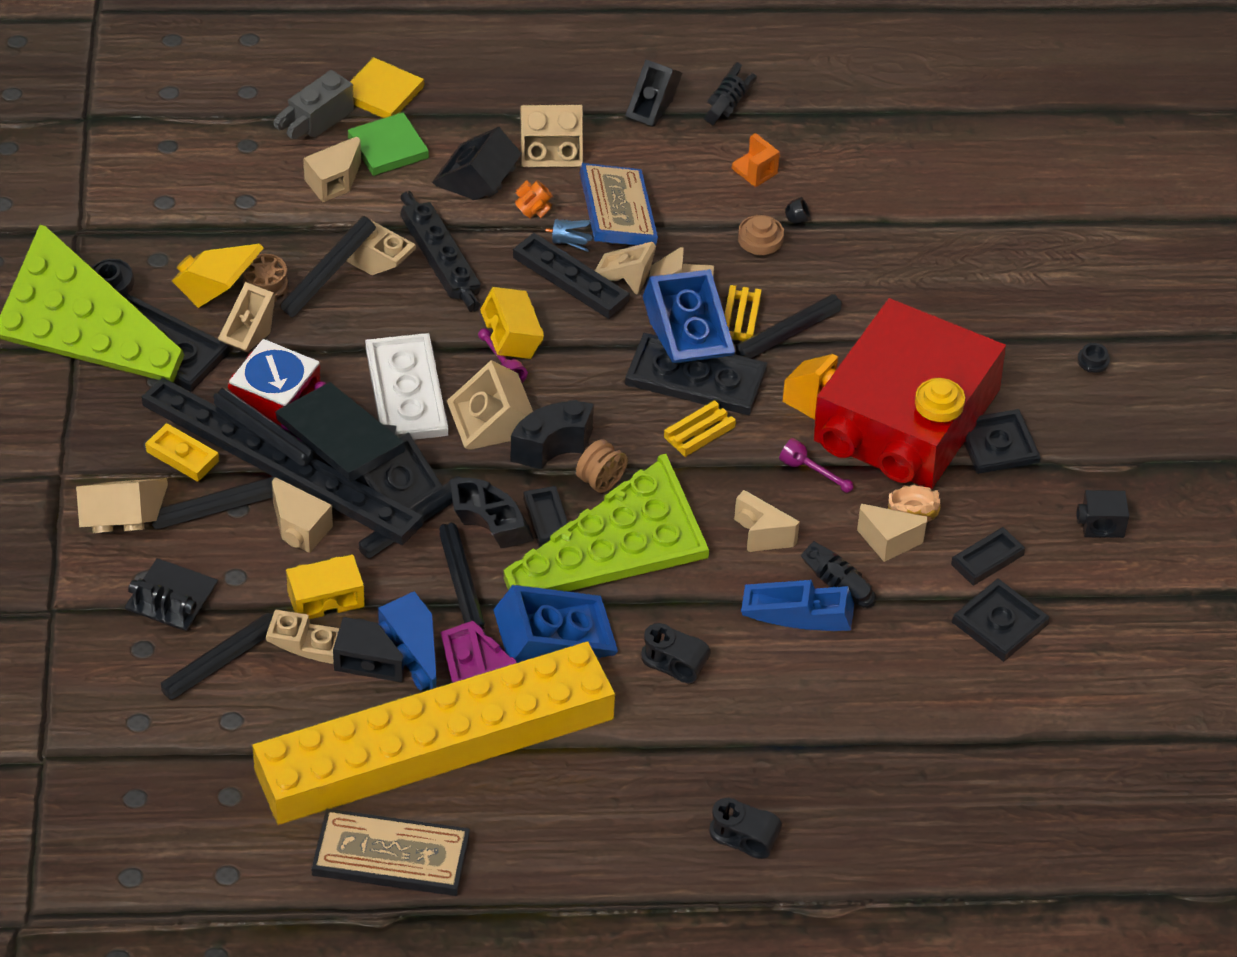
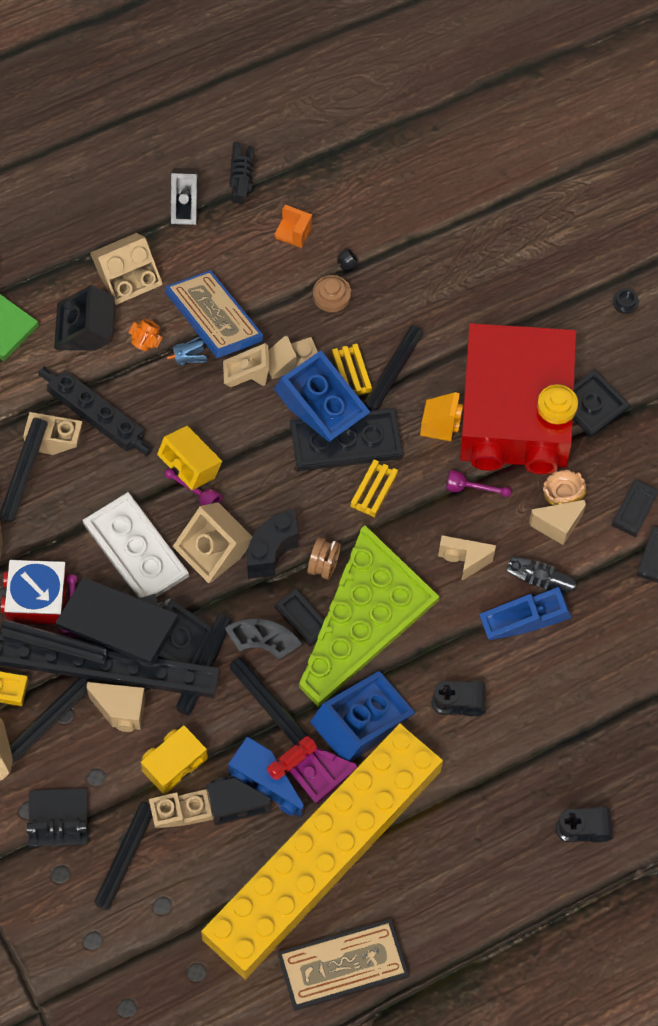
camera: 25 degrees left, 15 degrees up
(448, 626) = (291, 758): none -> red axle
(571, 275) = (208, 392): black plate -> none

